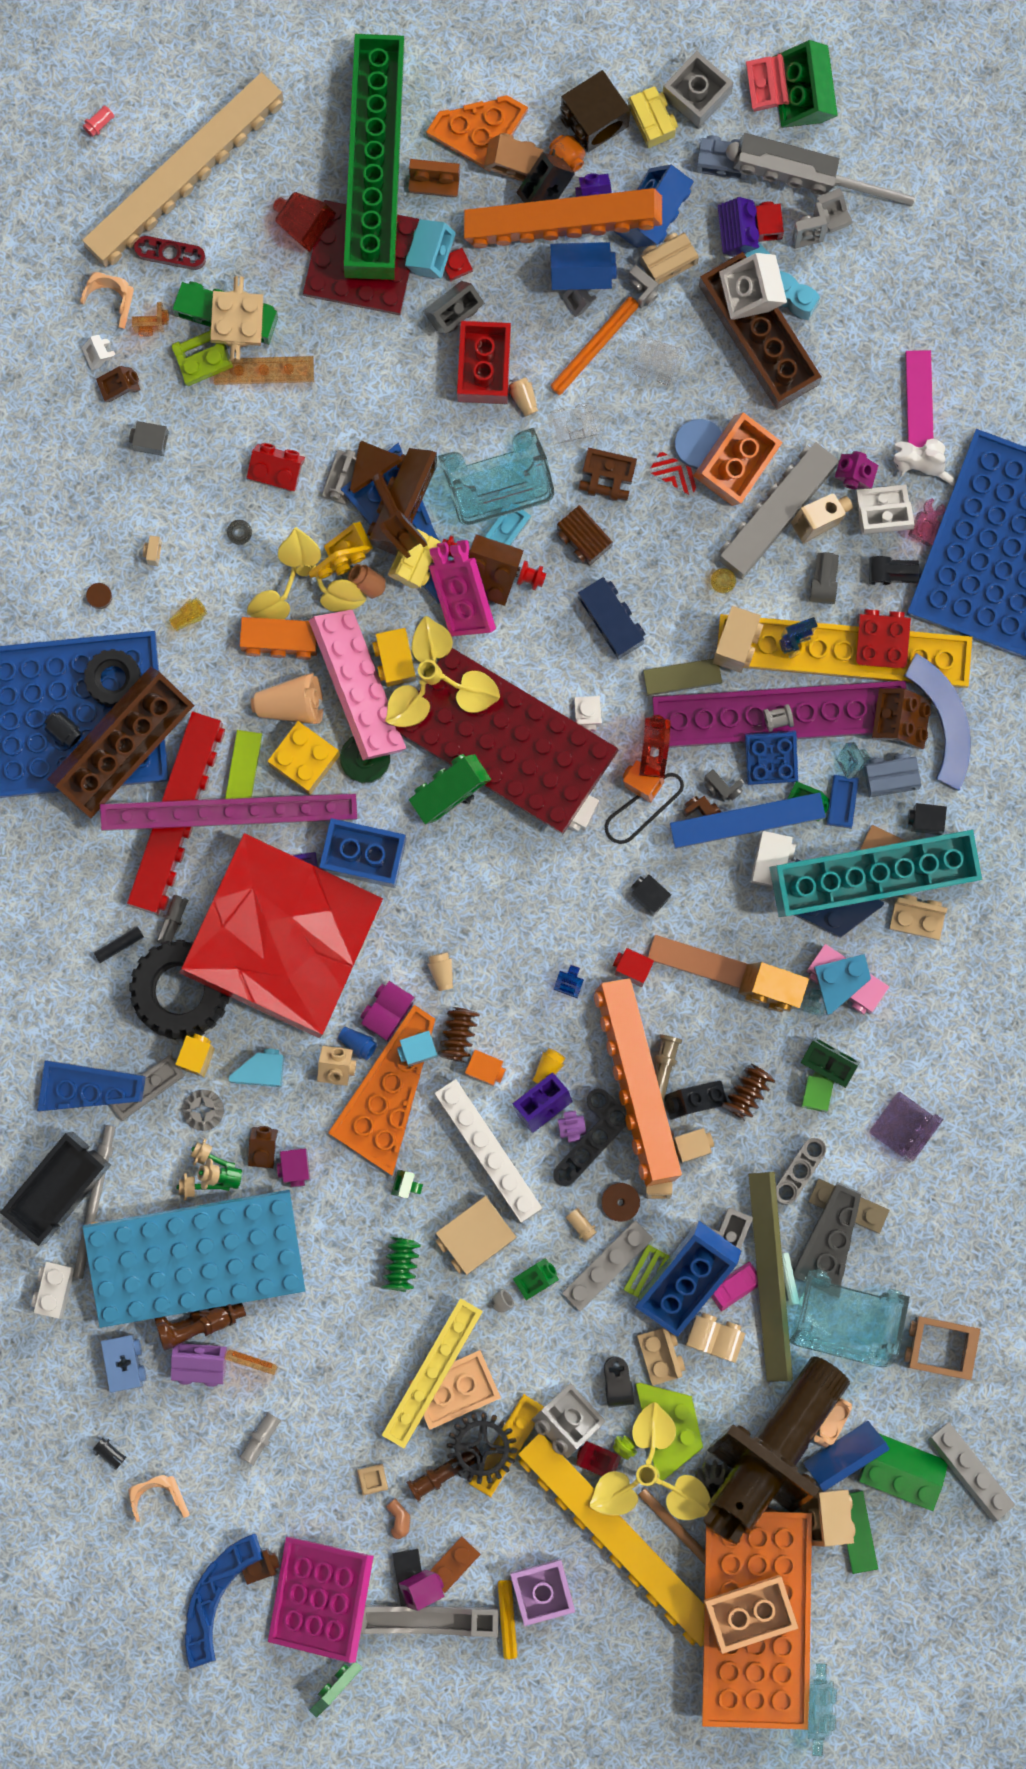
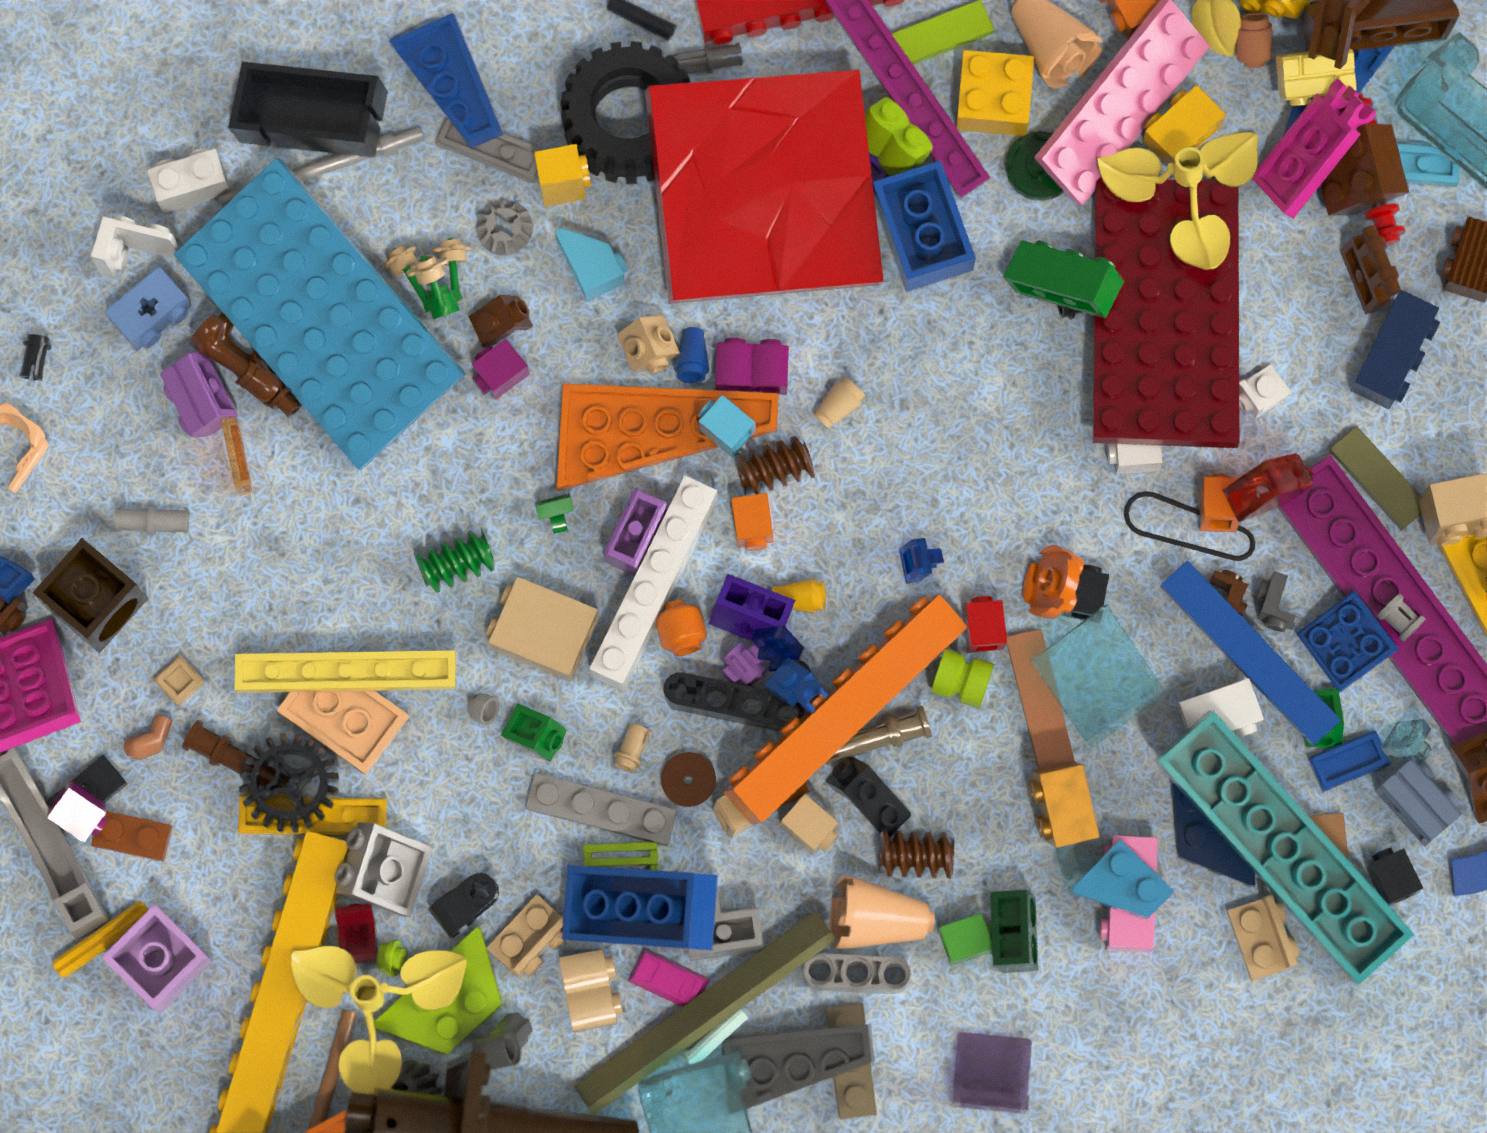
camera: 60 degrees right, 5 degrees down
(73, 1364) = (122, 232): none -> white bracket
(290, 1505) = (90, 595): none -> dark brown brick
(297, 837) = (895, 140): none -> lime brick
(450, 1143) = (635, 532): none -> medium lavender brick
(525, 1151) = (681, 628): none -> orange head
(554, 602) = (1370, 269): none -> reddish brown plate
(574, 1100) = (776, 645): none -> clear blue tile
(607, 1104) = (795, 684): none -> blue plate
(632, 899) = (1052, 582): none -> orange plate
(659, 999) = (962, 678): none -> lime wheel
(705, 918) = (1098, 676): none -> clear light blue piece
(721, 1410) = (505, 1041): none -> dark grey piece
(772, 1139) = (876, 915): none -> light nougat cone

